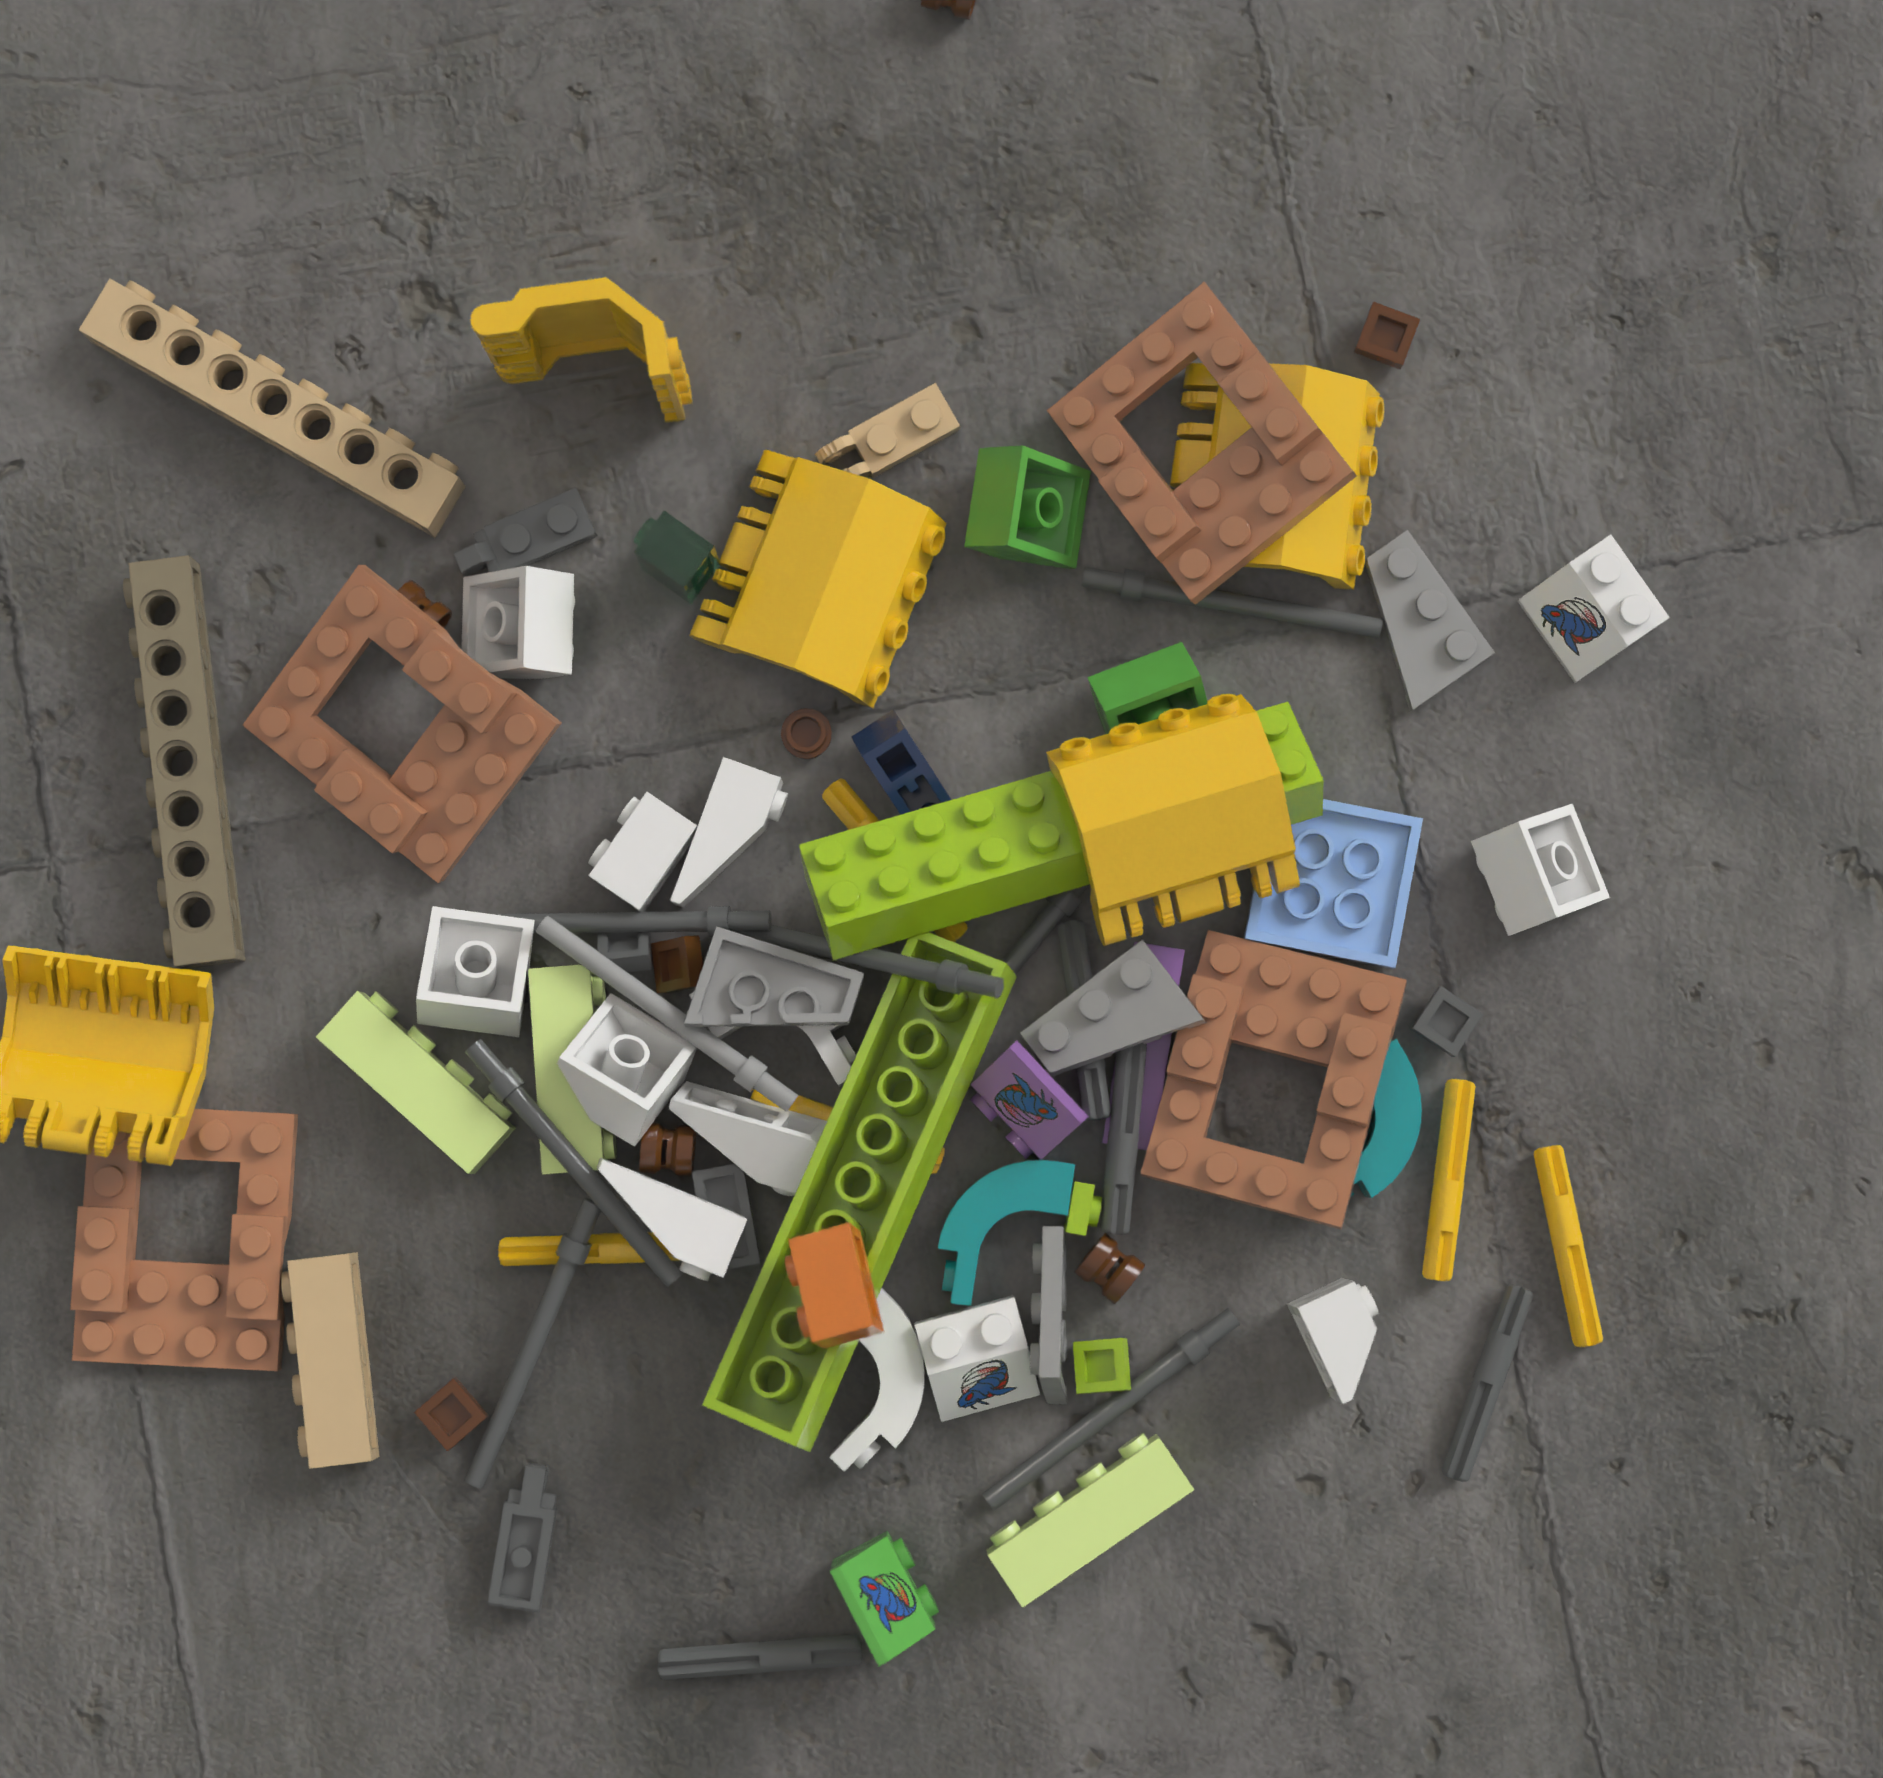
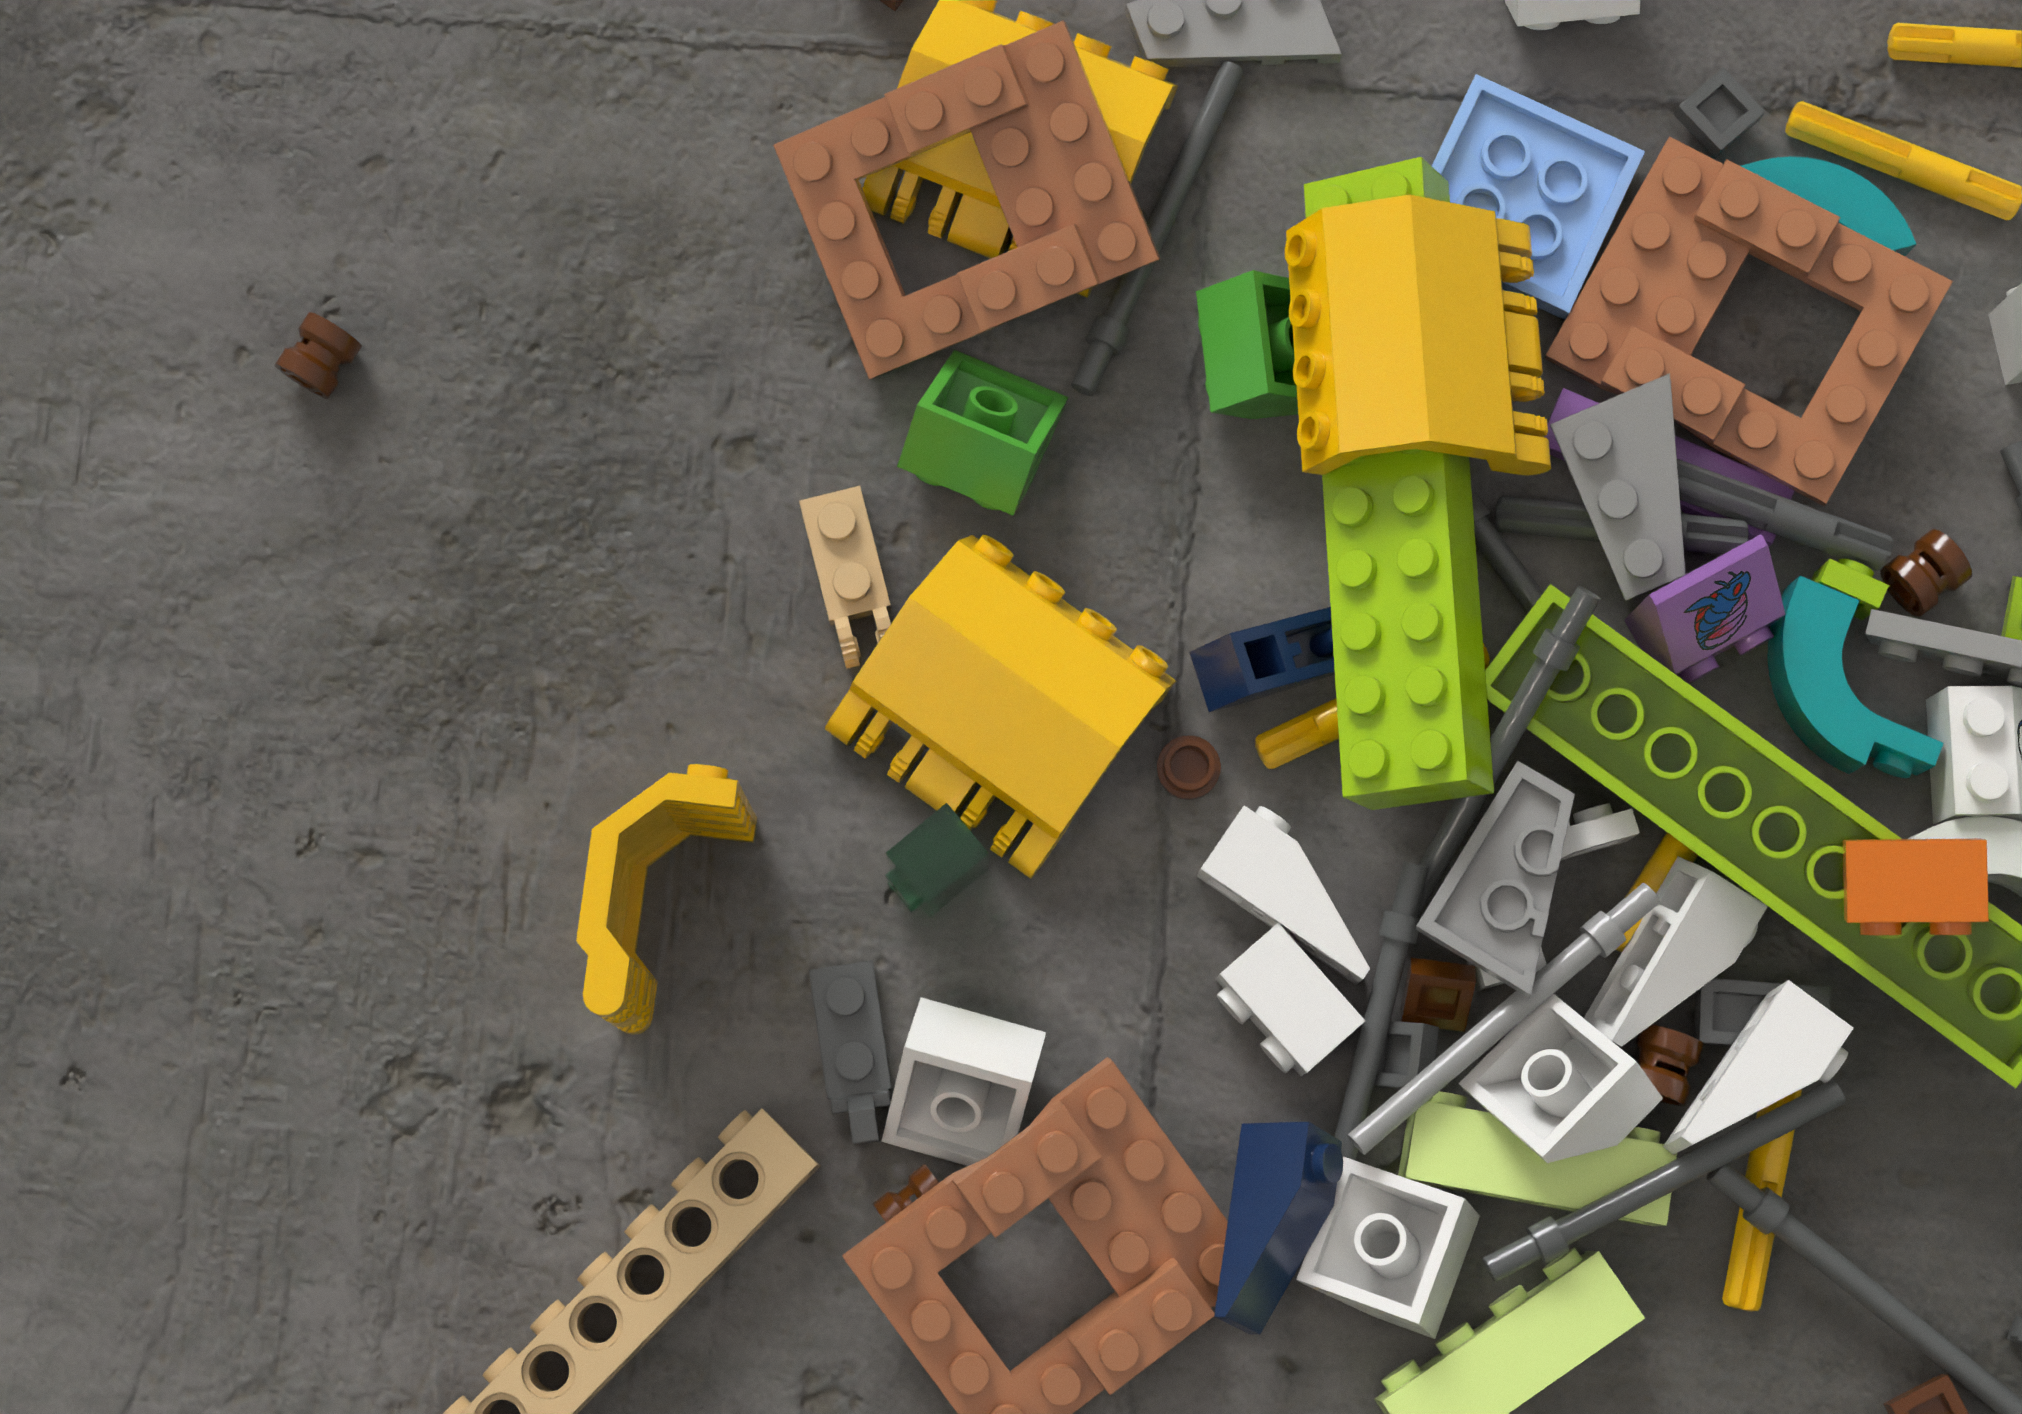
camera: 75 degrees left, 5 degrees down
(473, 877) = (1276, 1210): none -> dark blue slope

